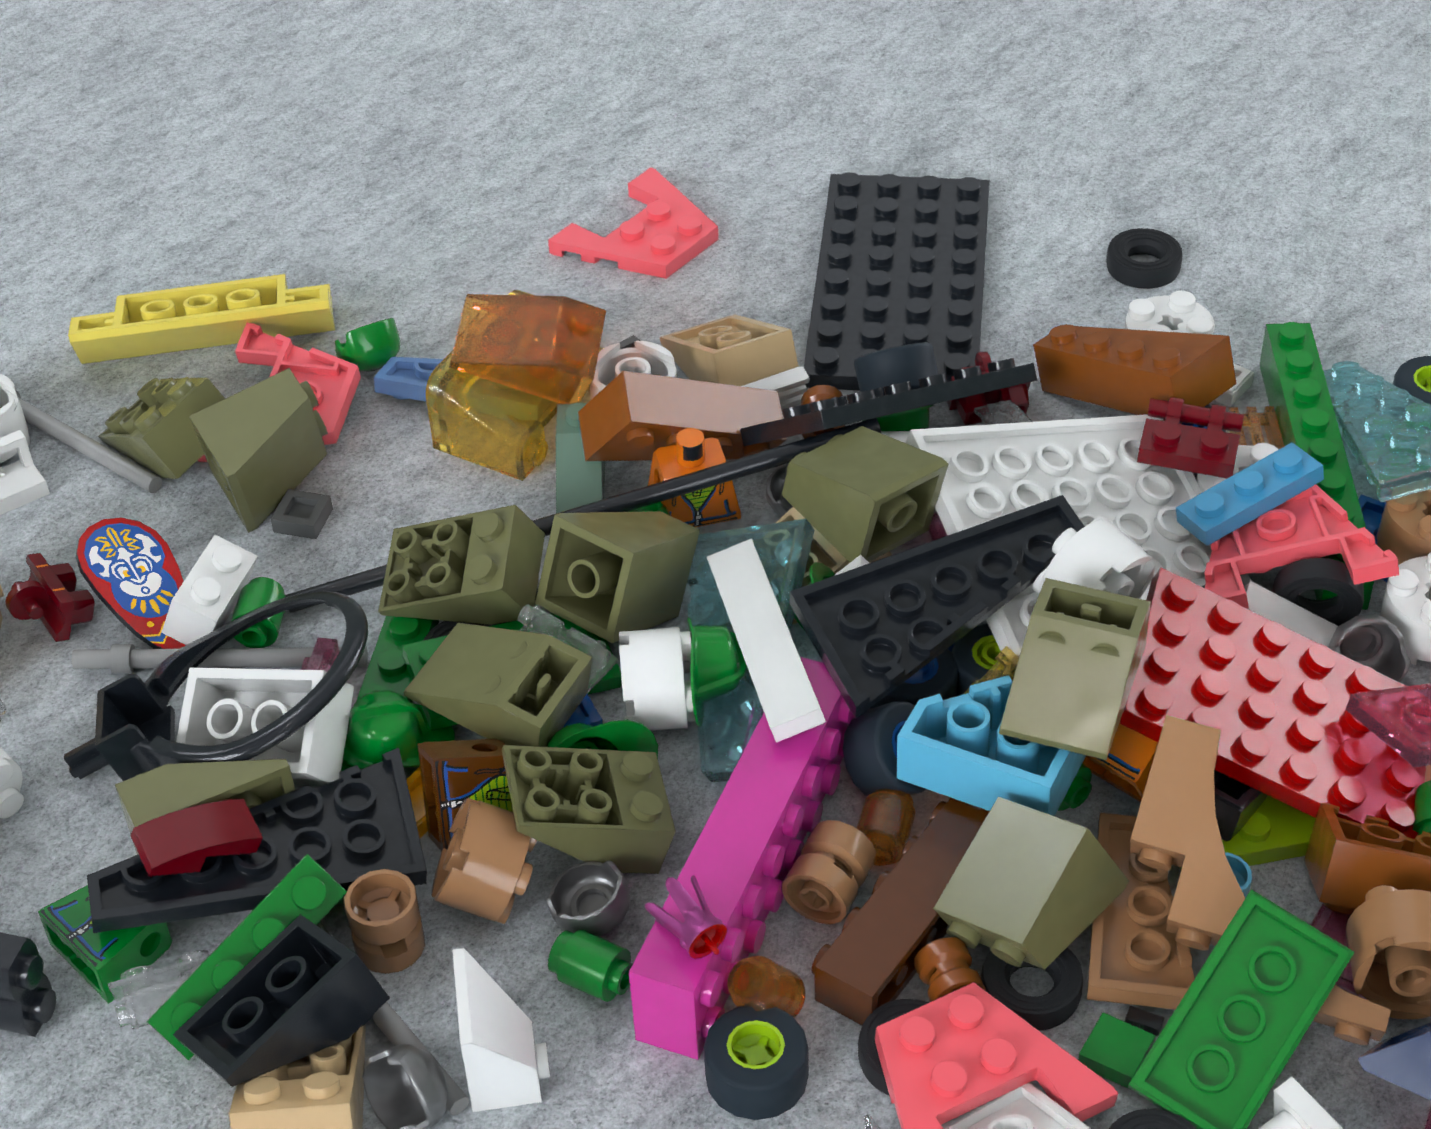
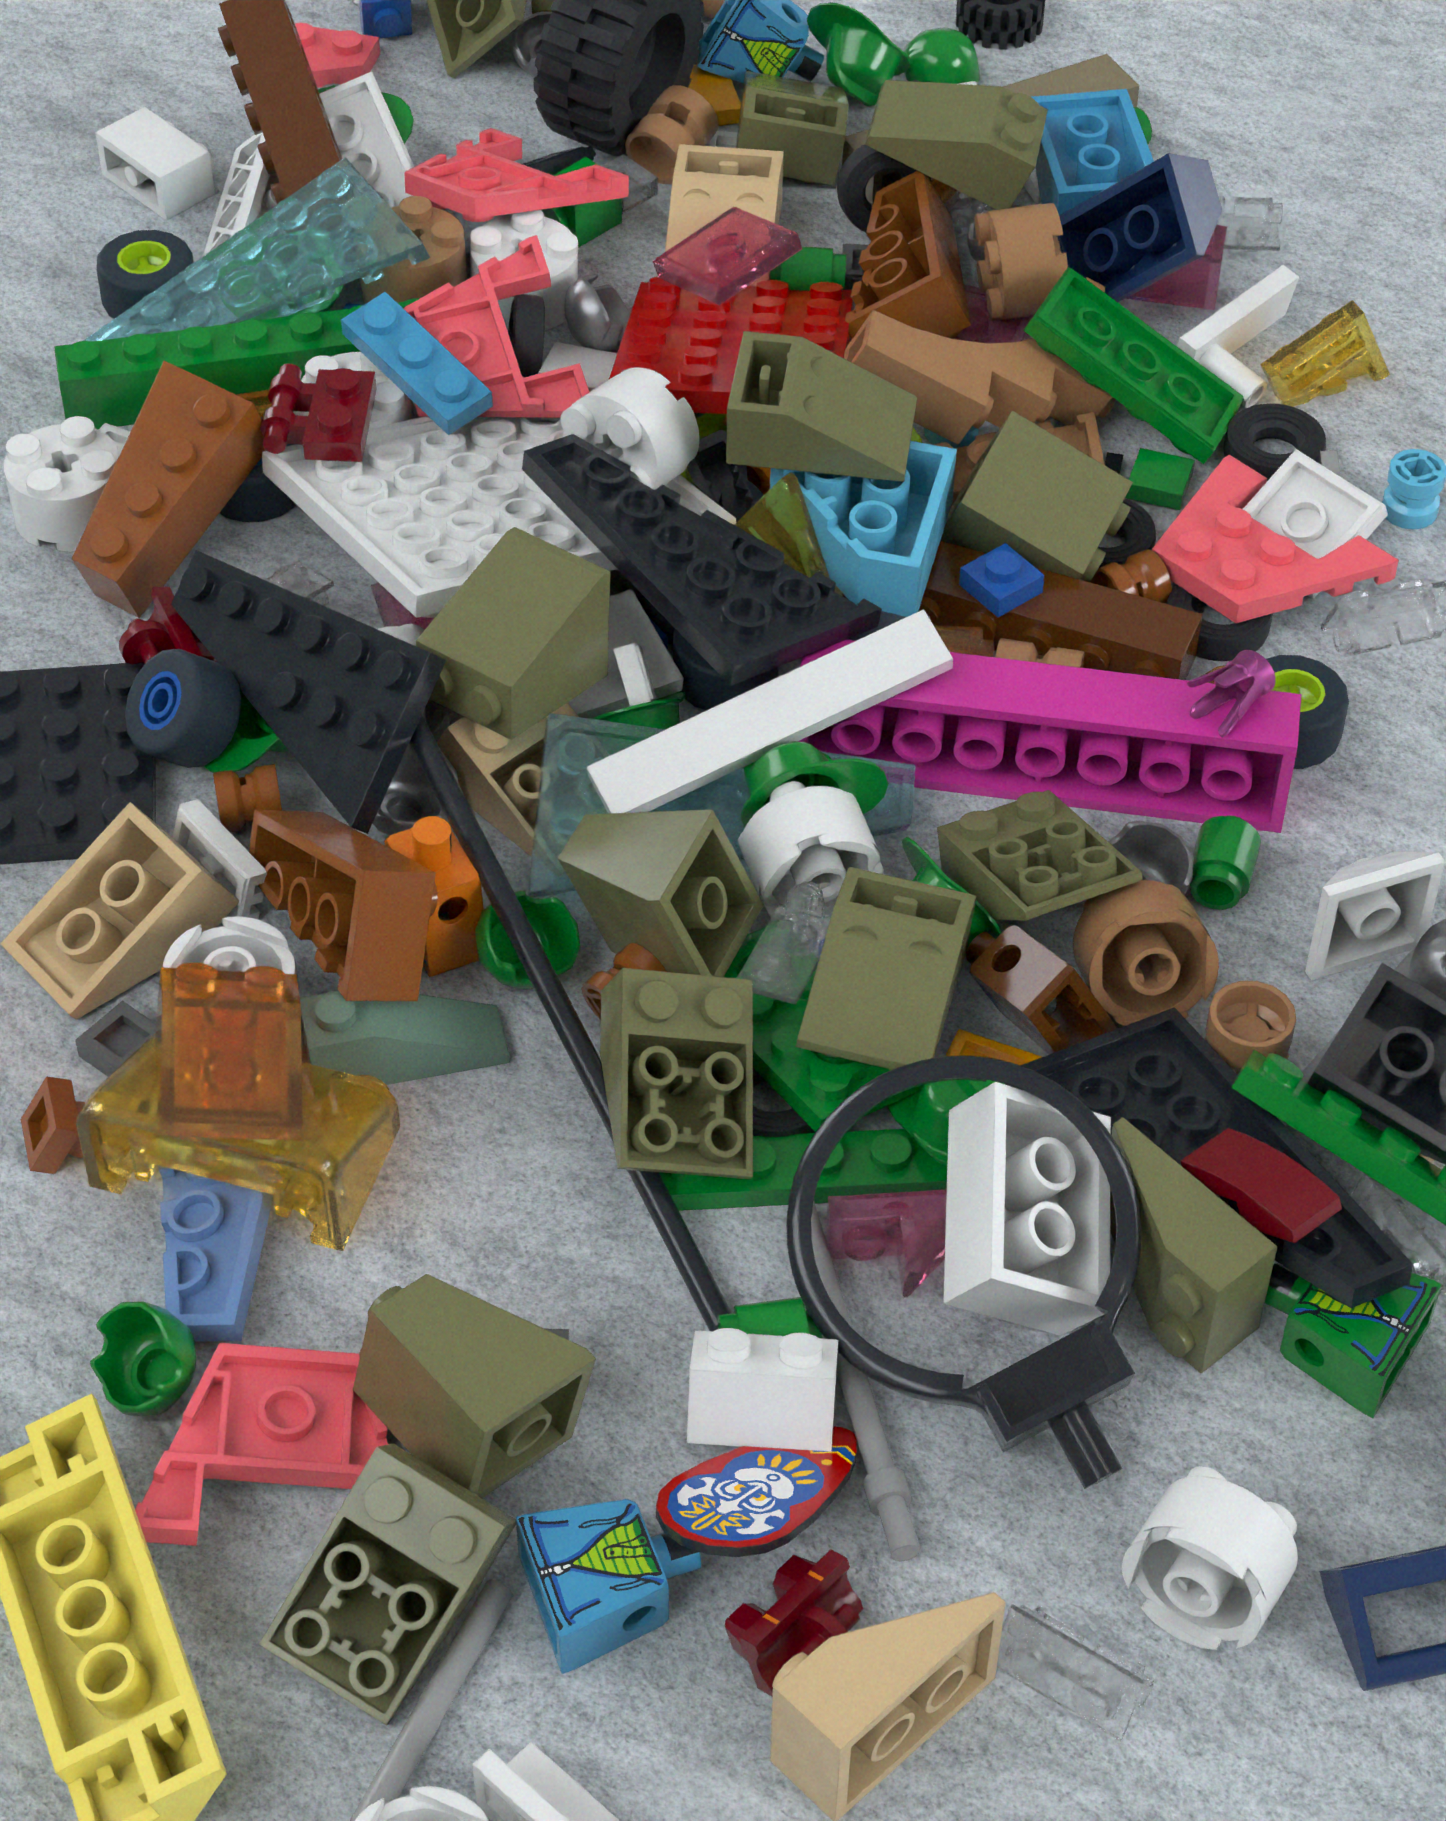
camera: 105 degrees left, 5 degrees up
(135, 496) = (598, 1576): none -> dark azure torso
(934, 846) = (1001, 580): none -> blue plate

